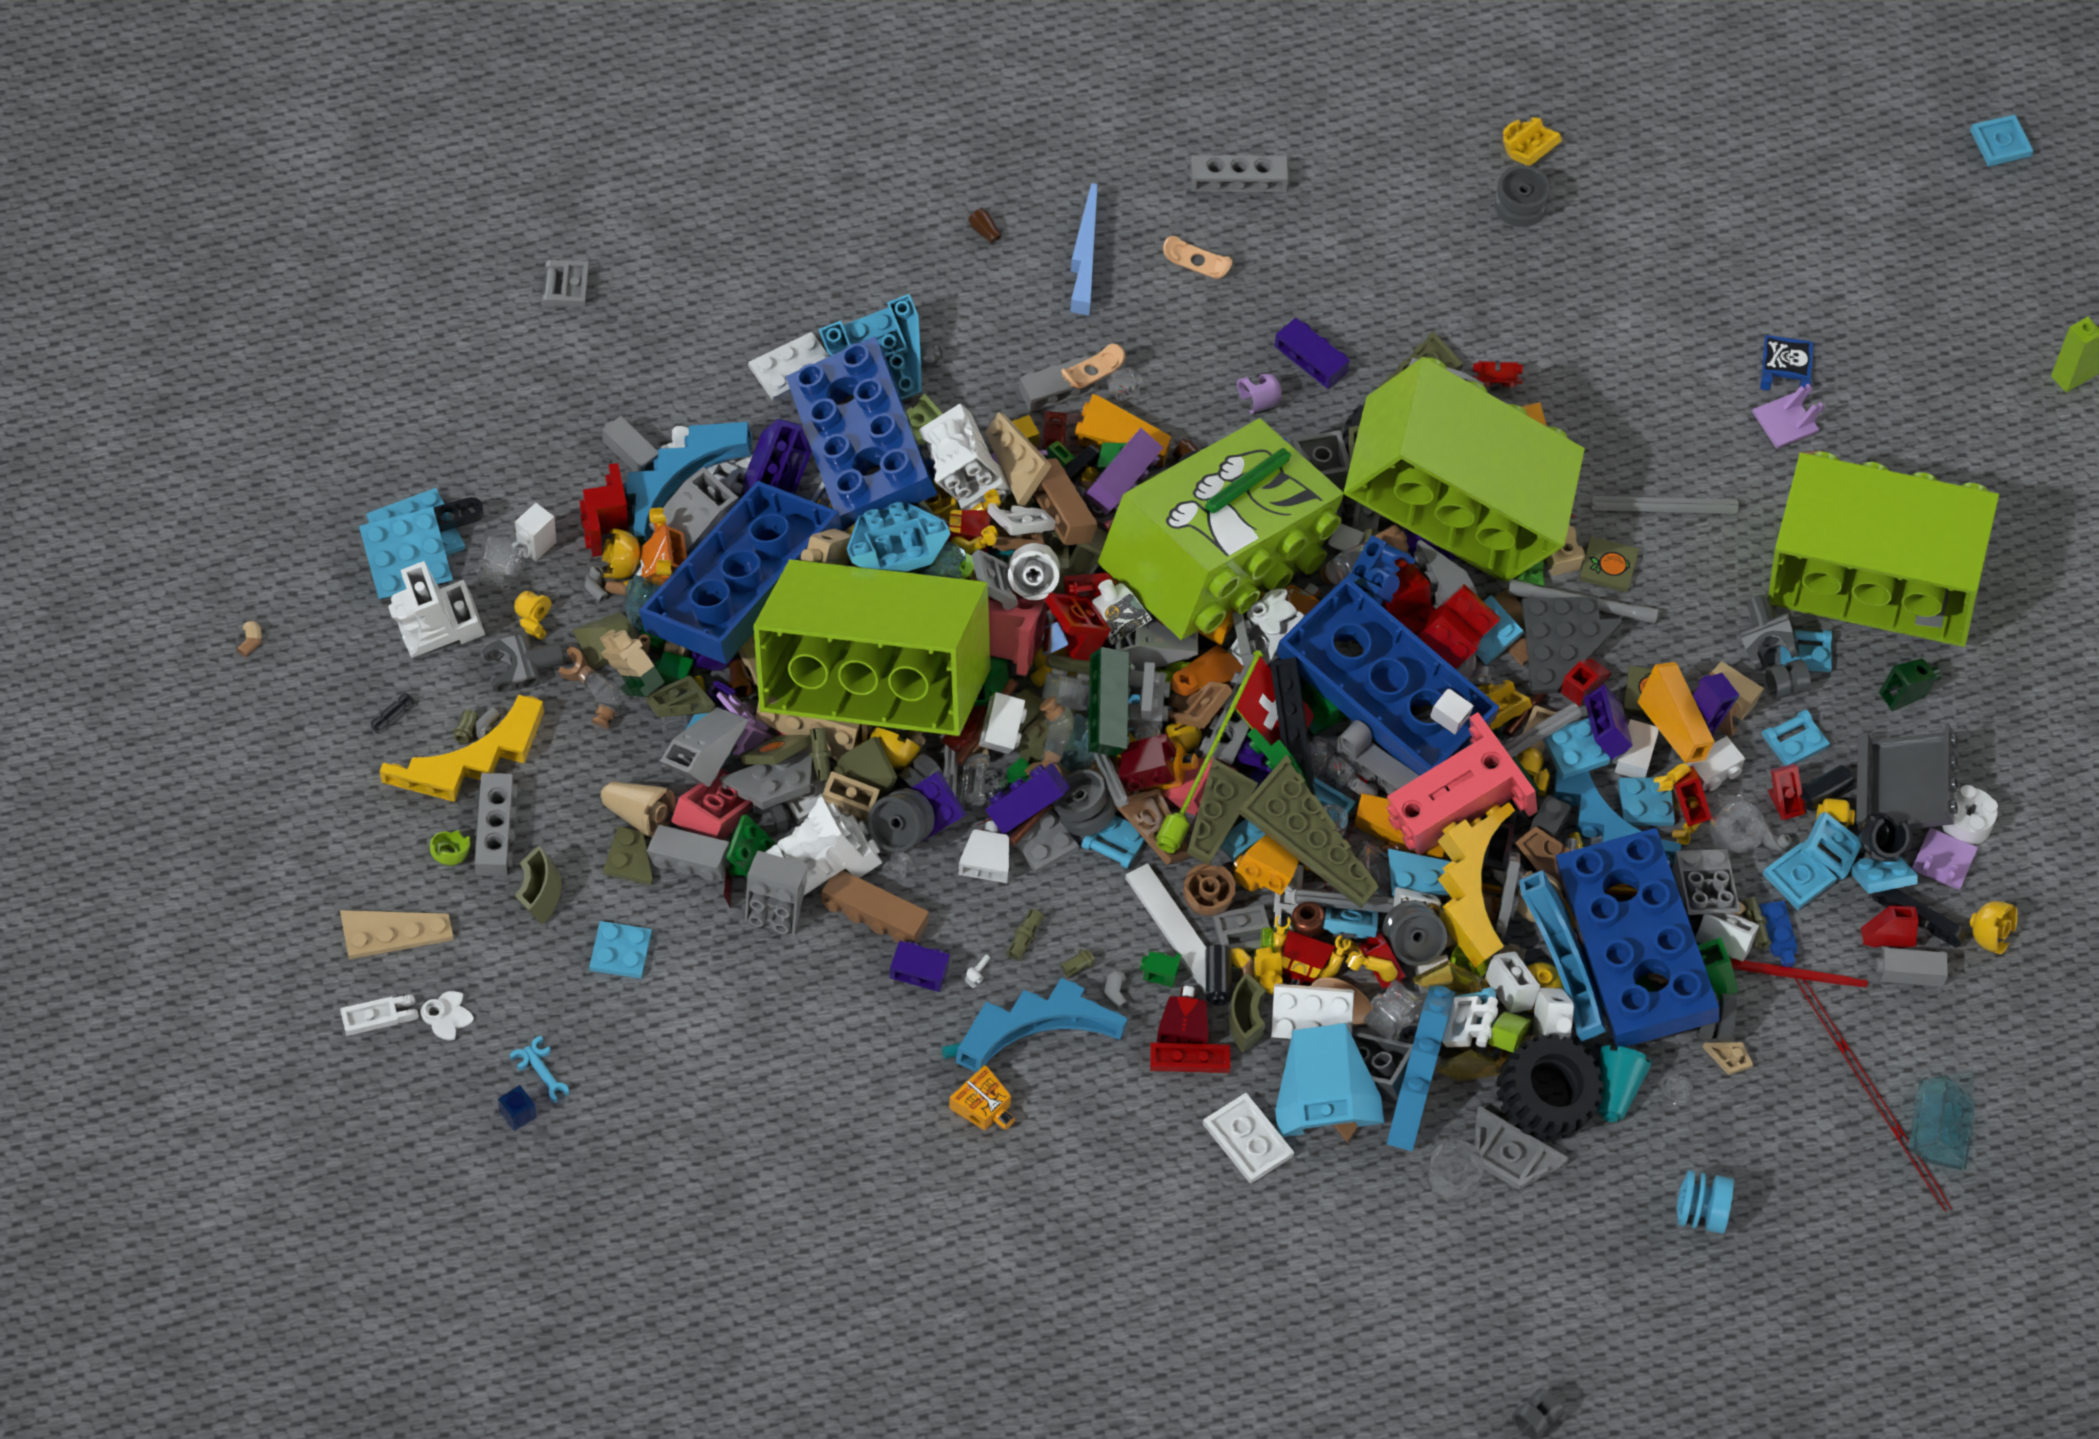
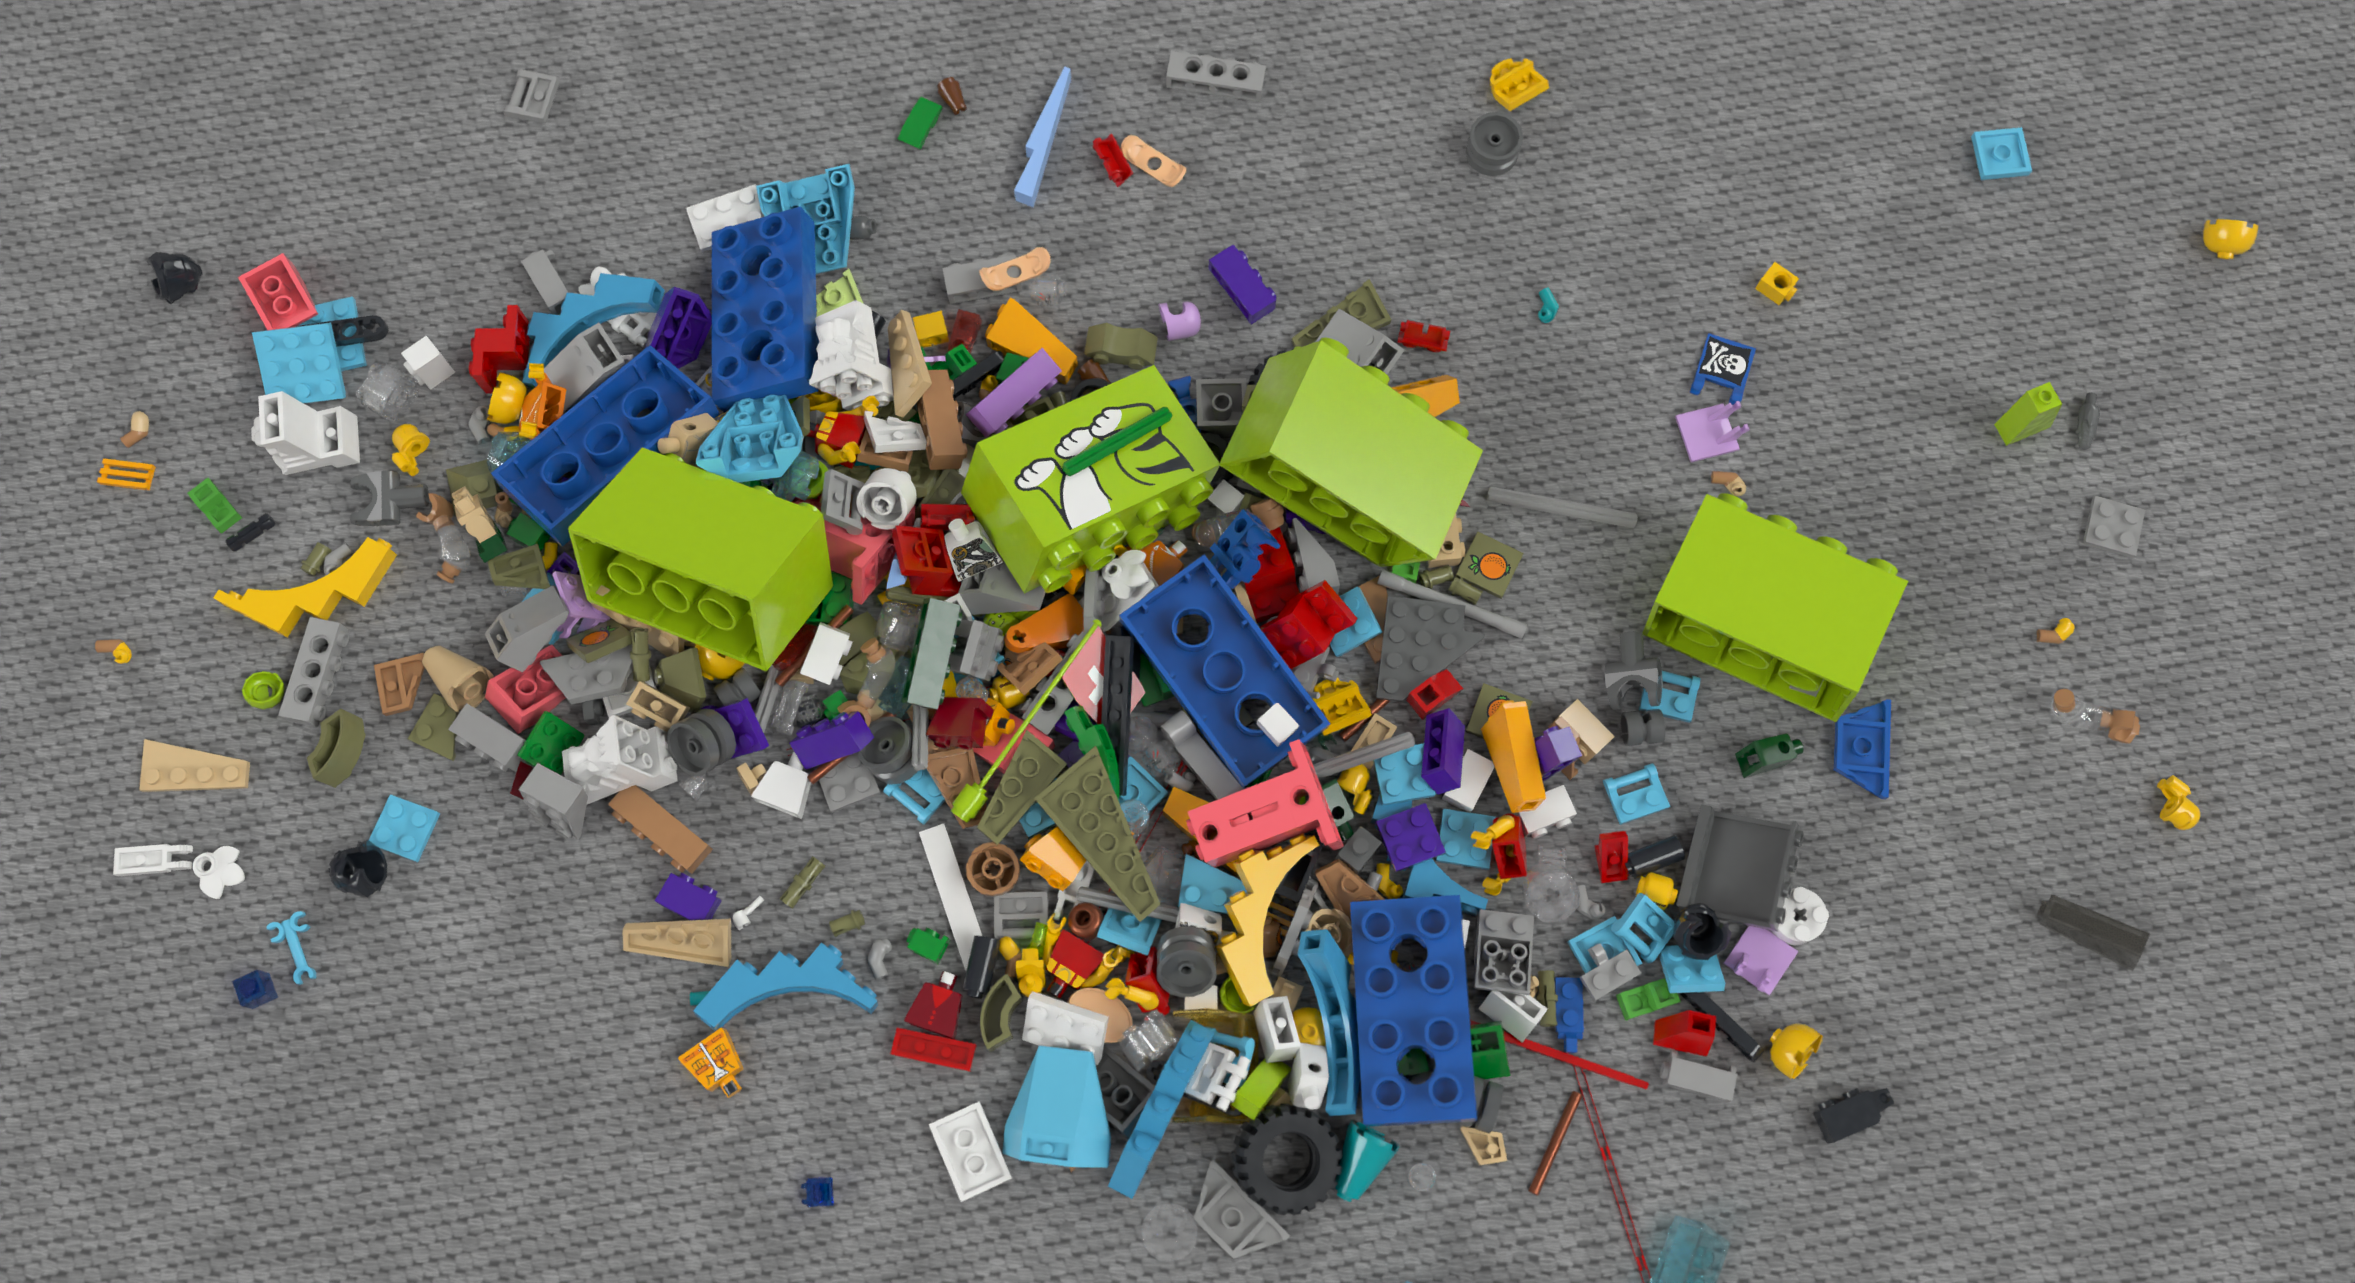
camera: 15 degrees right, 15 degrees up
(248, 675) = (130, 465): none -> light orange tile
(261, 489) = (174, 274): none -> black helmet
(287, 835) = (116, 647): none -> arm
(348, 694) = (214, 505): none -> bright green slope
(367, 492) = (279, 294): none -> coral slope
(580, 822) = (399, 683): none -> medium nougat wing
(590, 986) = (359, 869): none -> black helmet
(927, 999) = (684, 940): none -> tan wing
(950, 851) = (751, 777): none -> tan tile
(959, 254) = (919, 122): none -> green slope
(1113, 1194) = (818, 1192): none -> clear blue tile
(1158, 261) = (1113, 158): none -> red hinge
(1207, 422) = (1121, 345): none -> olive brick
(1562, 580) = (1436, 576): none -> olive pin
(1591, 588) = (1465, 590): none -> olive pin
(1596, 800) = (1410, 837): none -> dark purple plate
(1610, 332) = (1550, 306): none -> teal arm
(1794, 1043) = (1555, 1143): none -> copper bar
(1808, 888) = (1608, 973): none -> light grey plate
(1820, 281) = (1778, 275): none -> yellow brick
(1849, 910) = (1646, 999): none -> bright green slope
(1997, 667) = (1864, 747): none -> blue wing
(2058, 973) = (1851, 1114): none -> black hinge

